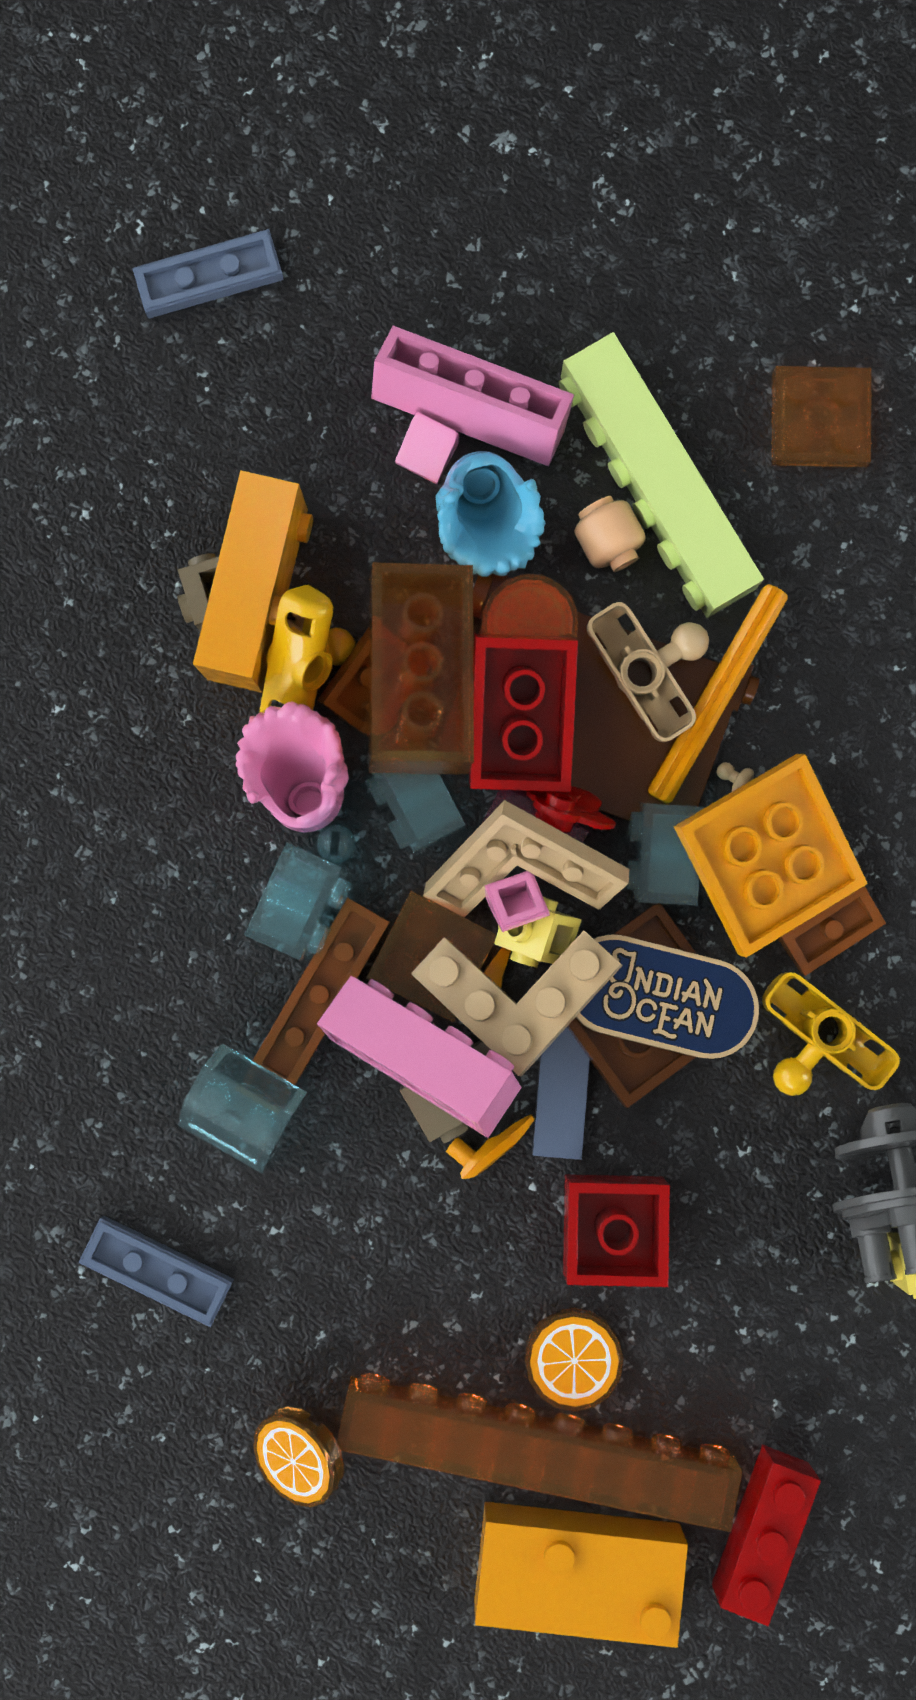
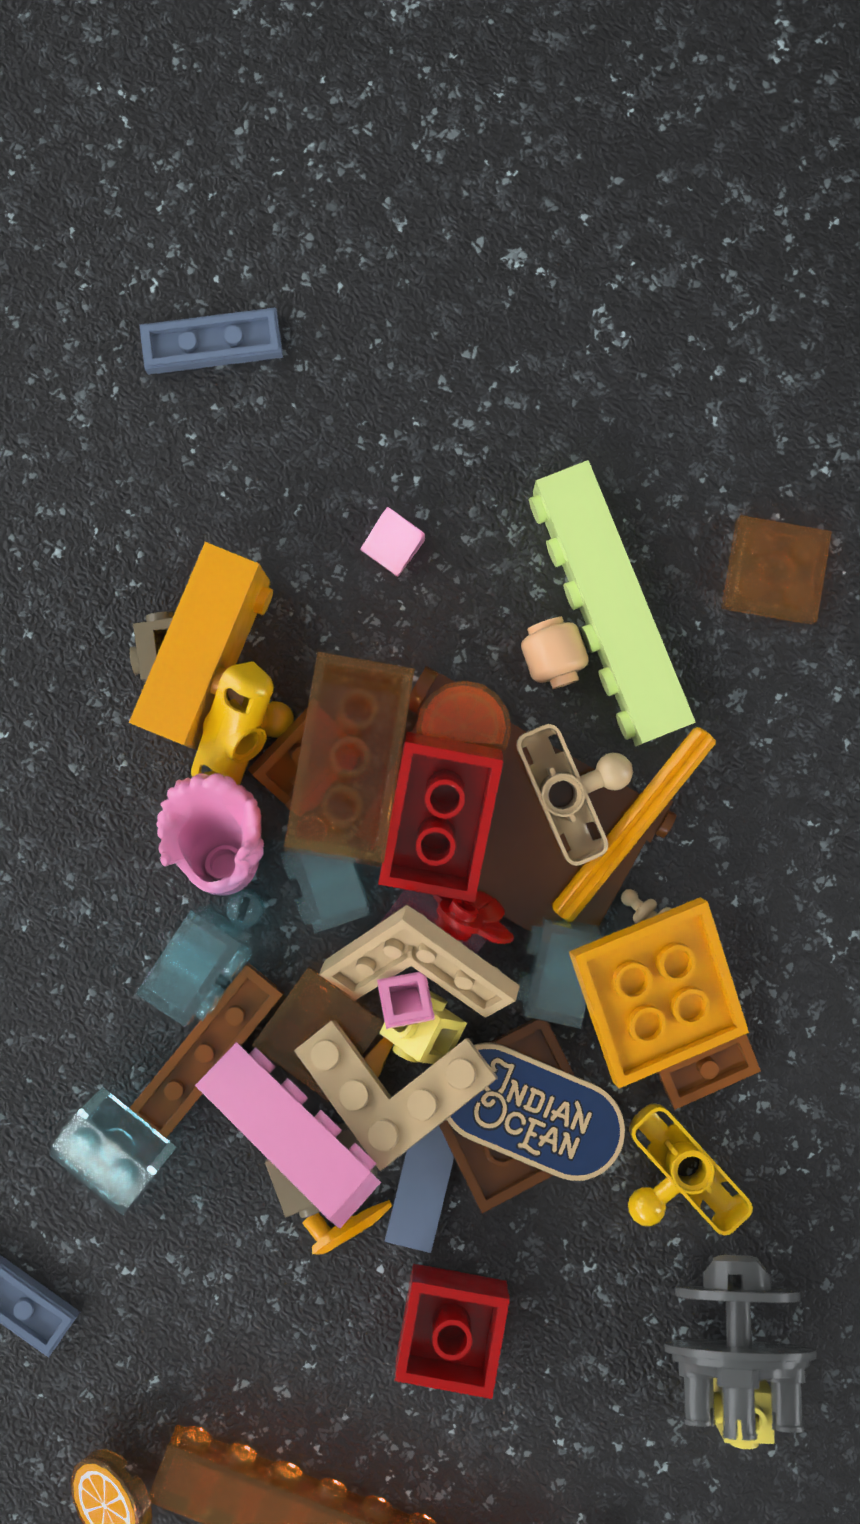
camera: 10 degrees right, 0 degrees up
(471, 395) = (441, 499): bright pink brick -> none
(489, 515) = (439, 619): medium azure hair -> none
(573, 1359) = (392, 1445): tile -> none

